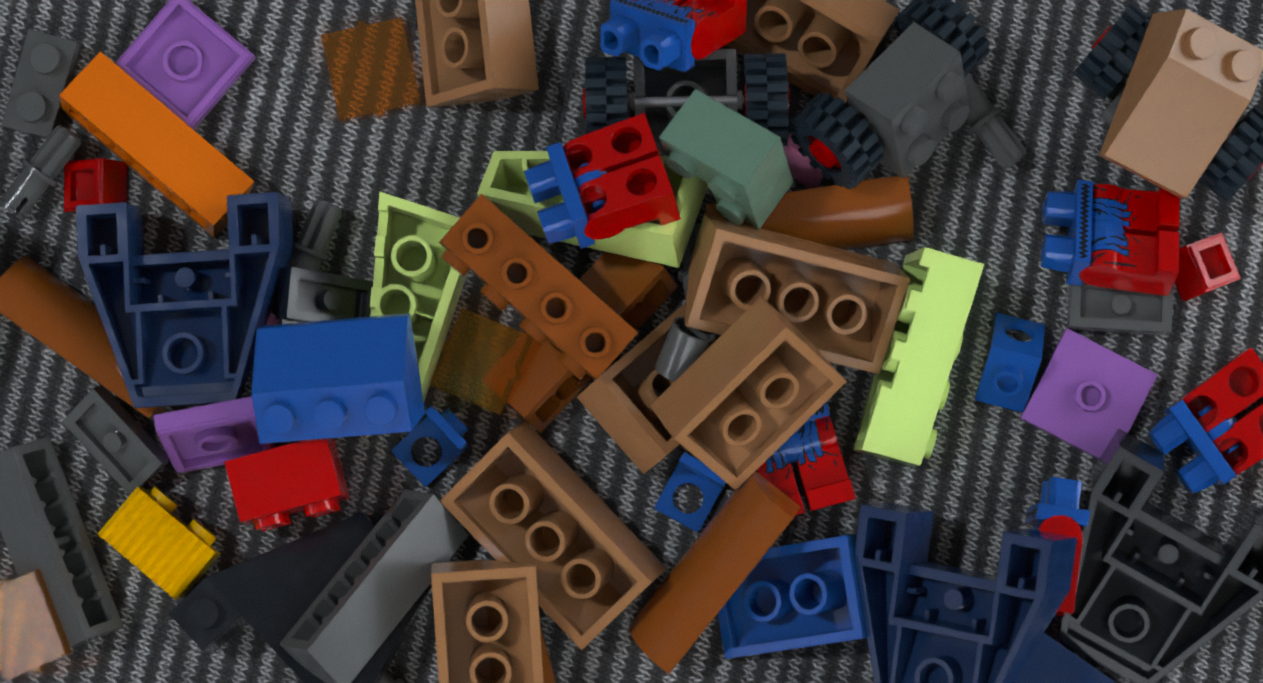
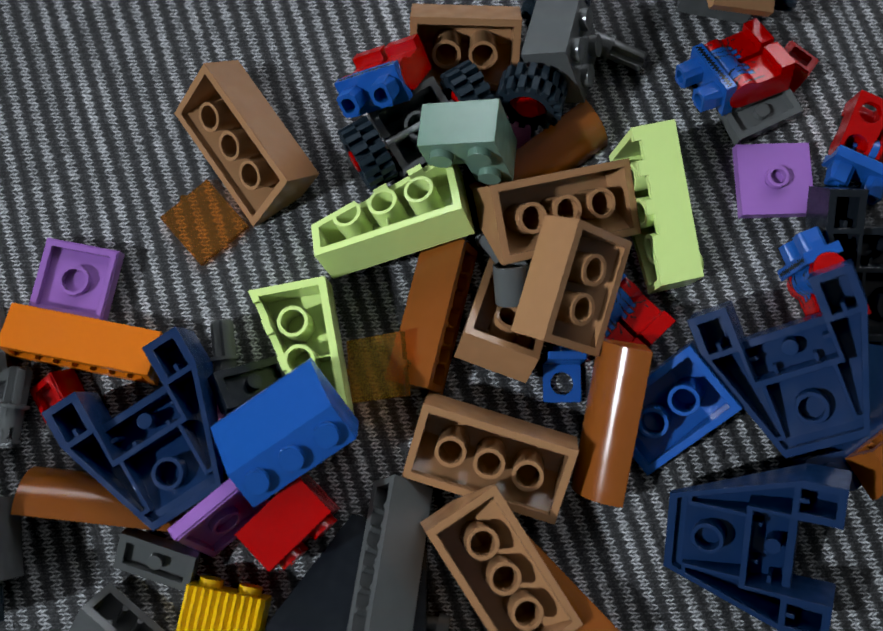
camera: 30 degrees left, 5 degrees down
(446, 430) = (379, 426): blue bracket -> none
(536, 287) = (388, 294): dark orange brick -> none
(606, 183) = (396, 198): red hips -> none
(1011, 364) = (717, 185): blue bracket -> none

